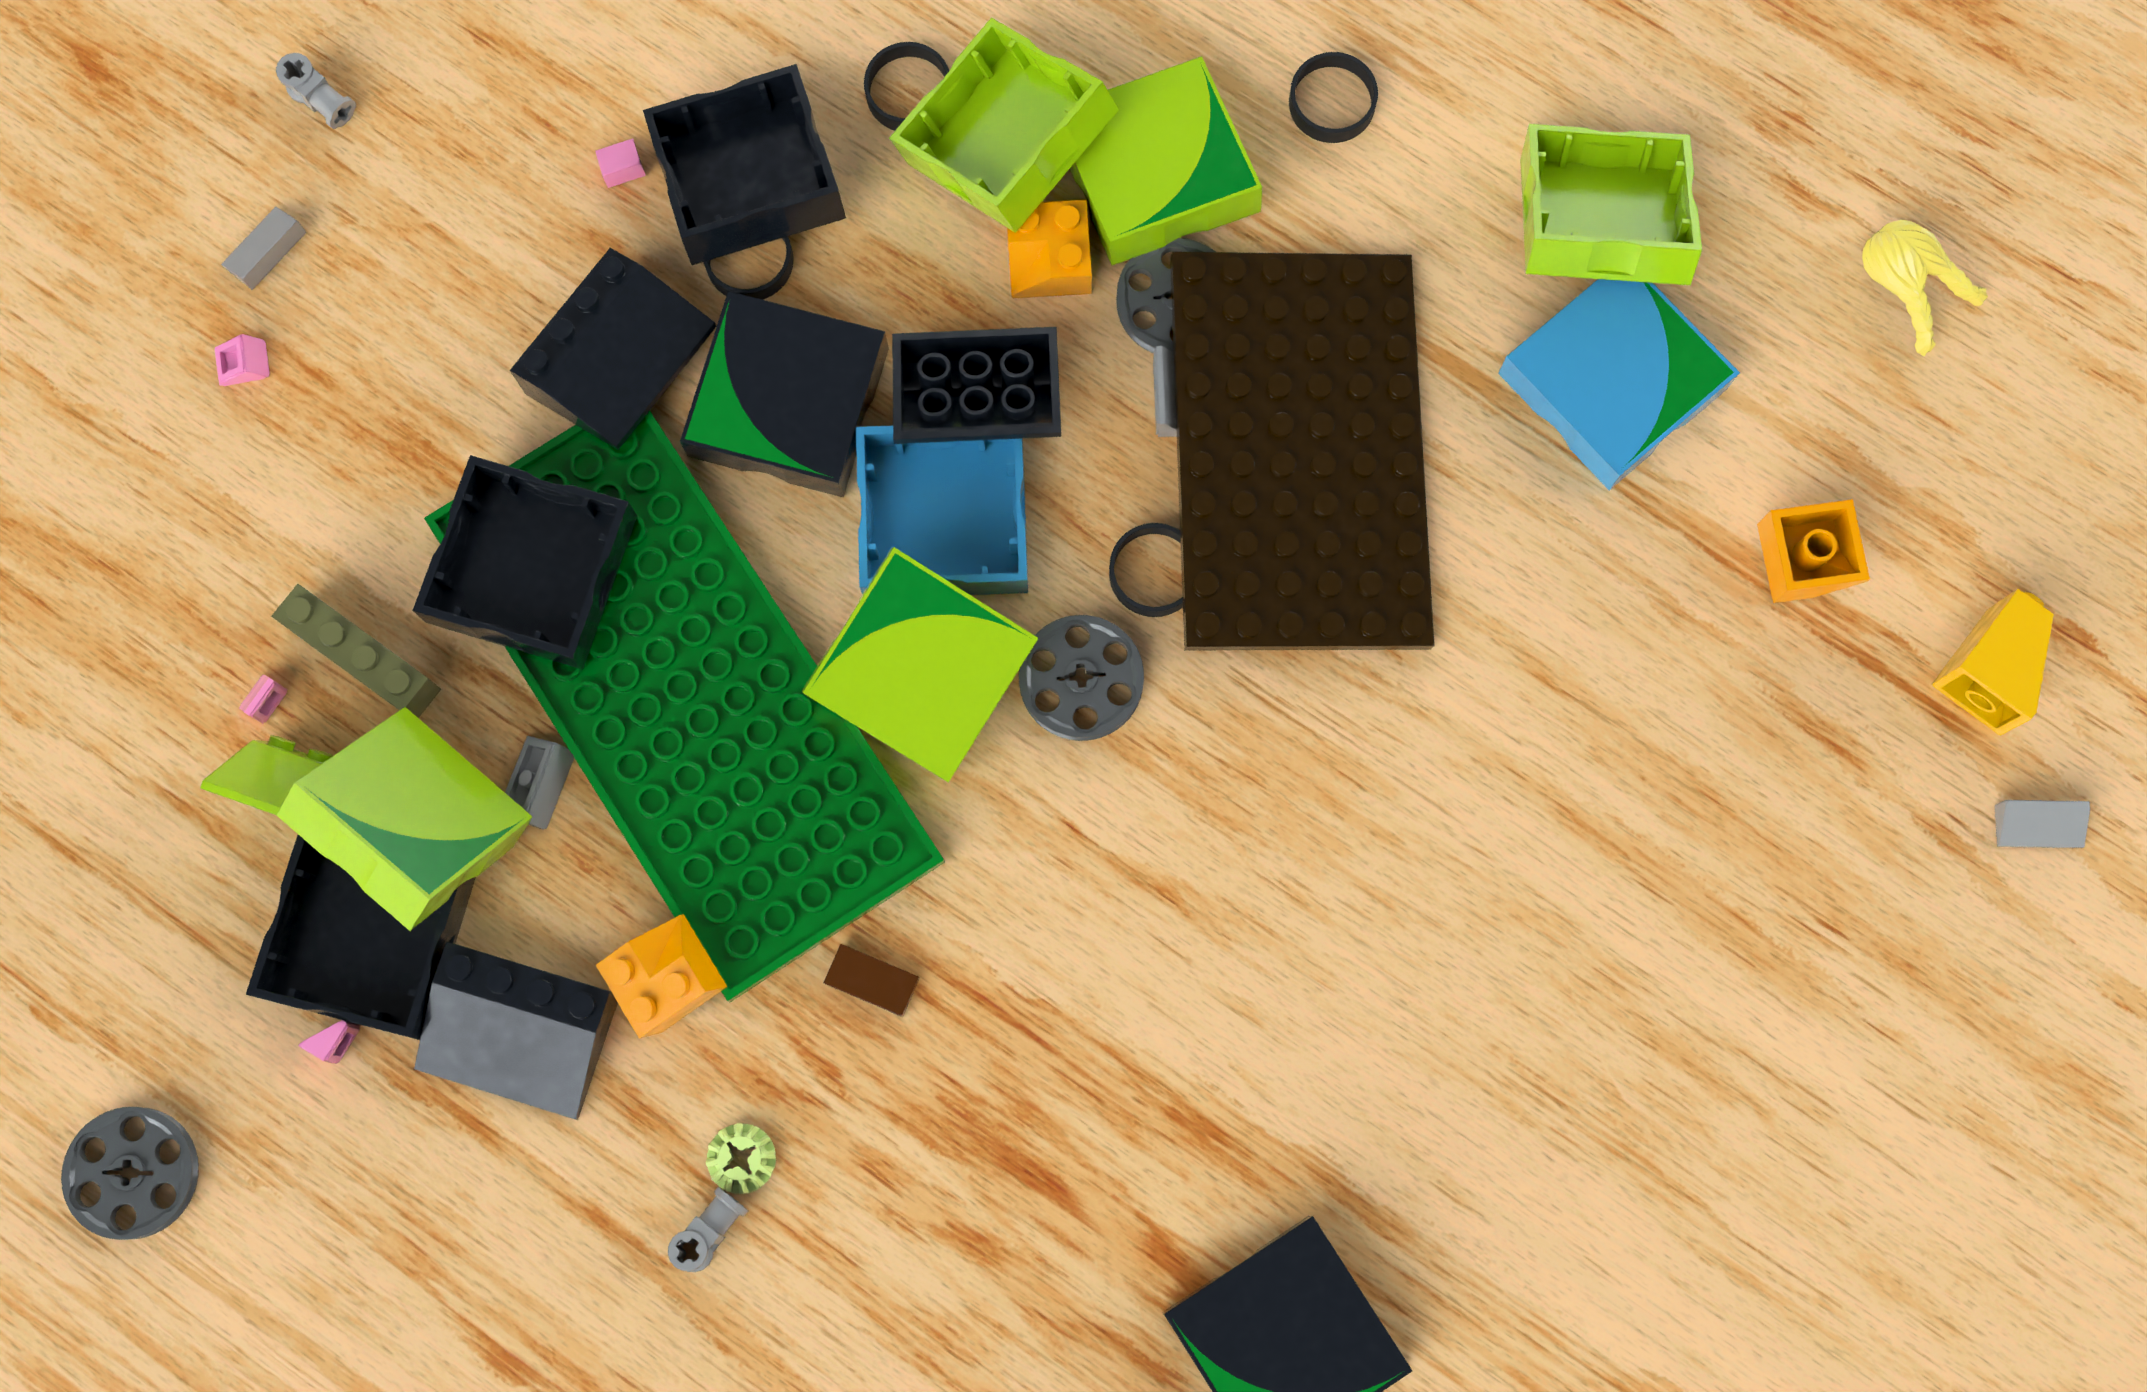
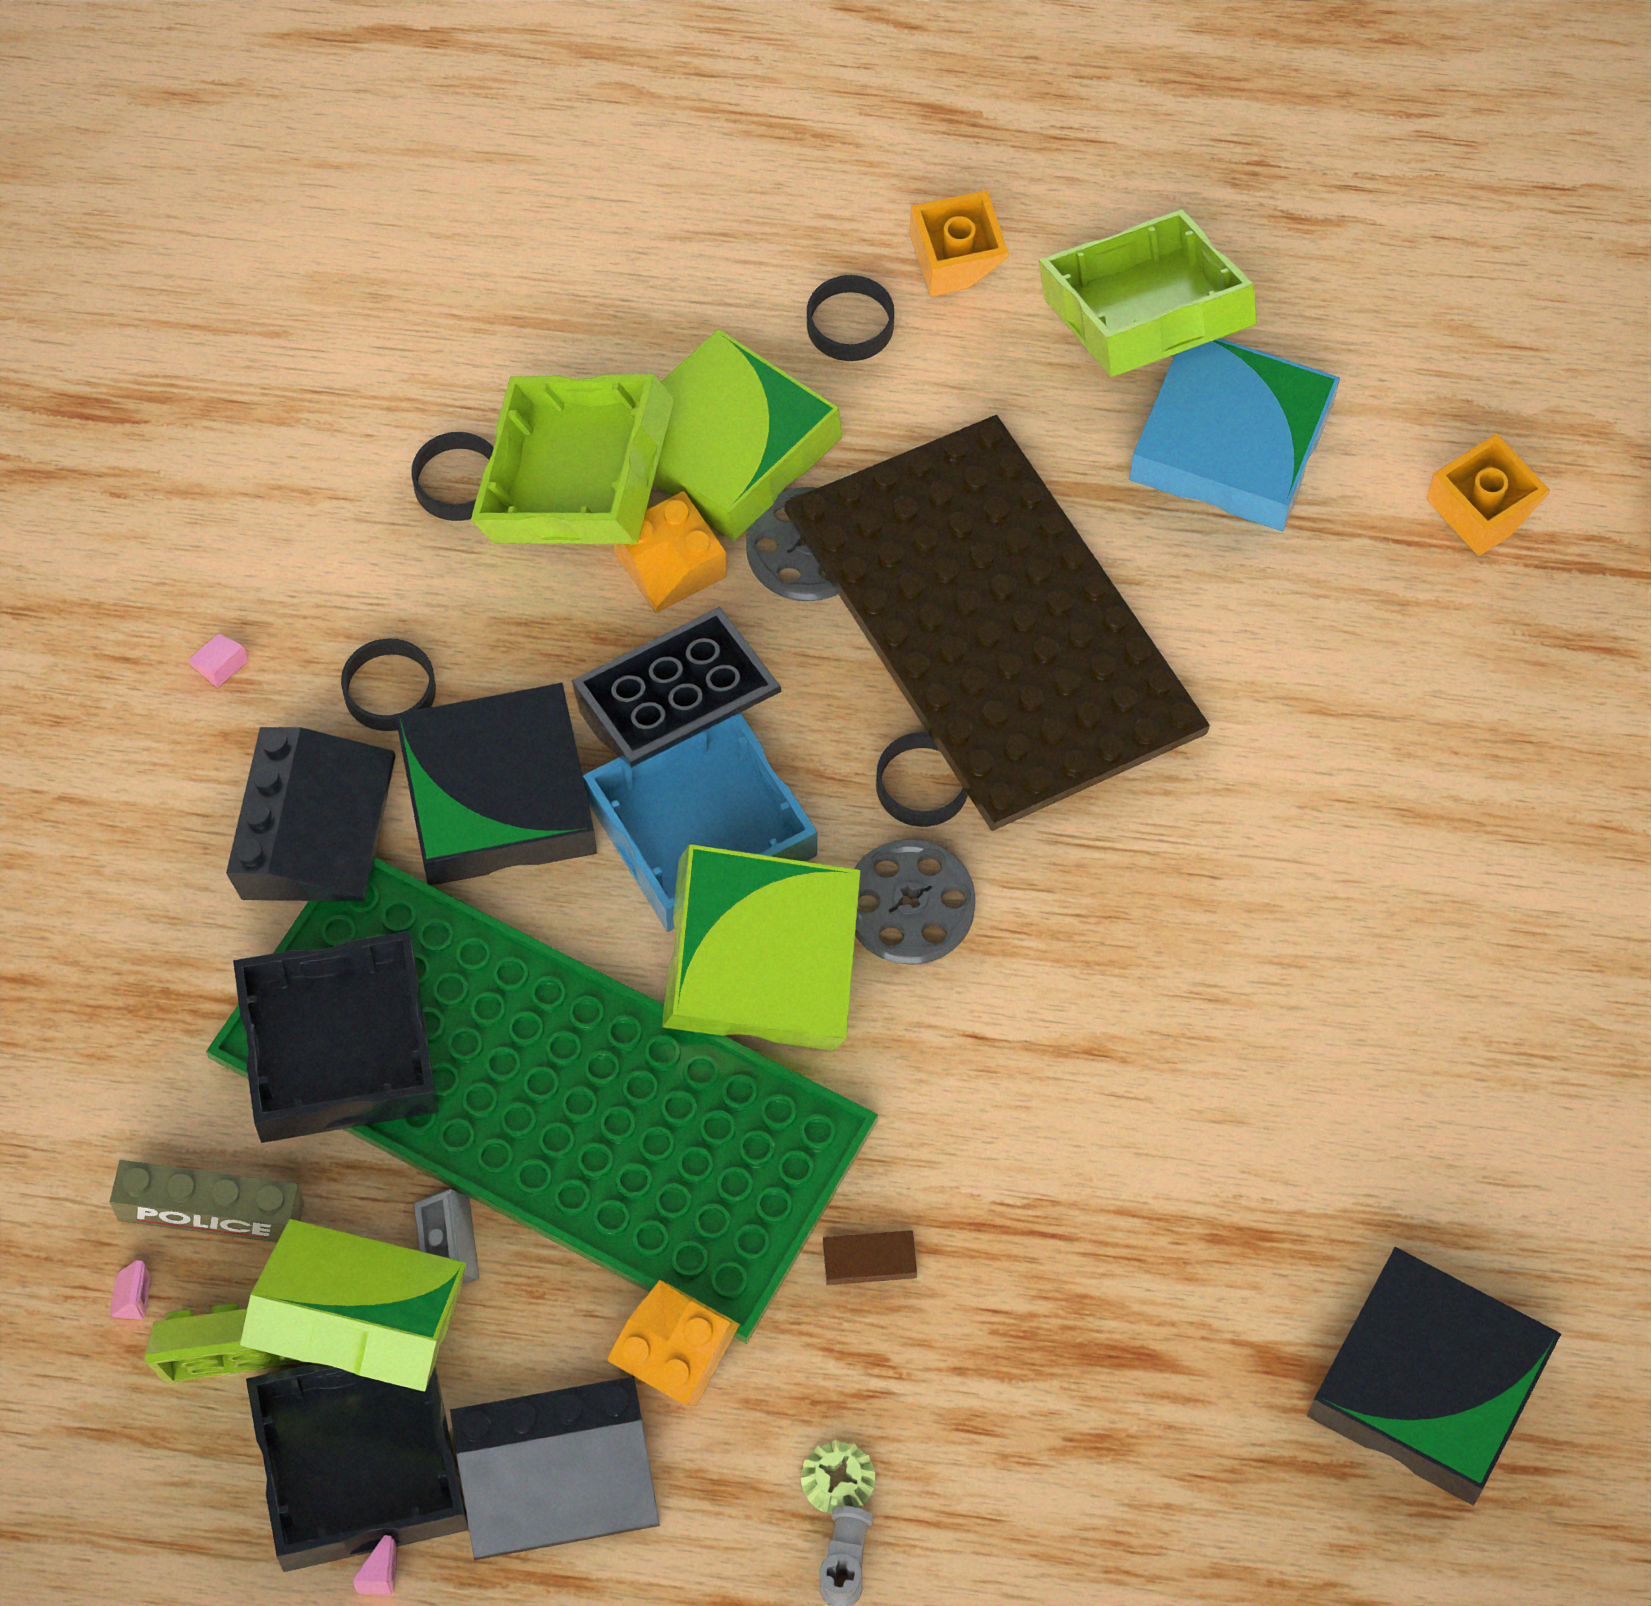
camera: 30 degrees left, 15 degrees down
(744, 165) = (346, 603): black tile -> none
(1164, 392) = (844, 627): light grey slope -> none
(1466, 69) = (956, 241): none -> light orange slope
(1901, 260) = (1419, 230): light yellow hair -> none

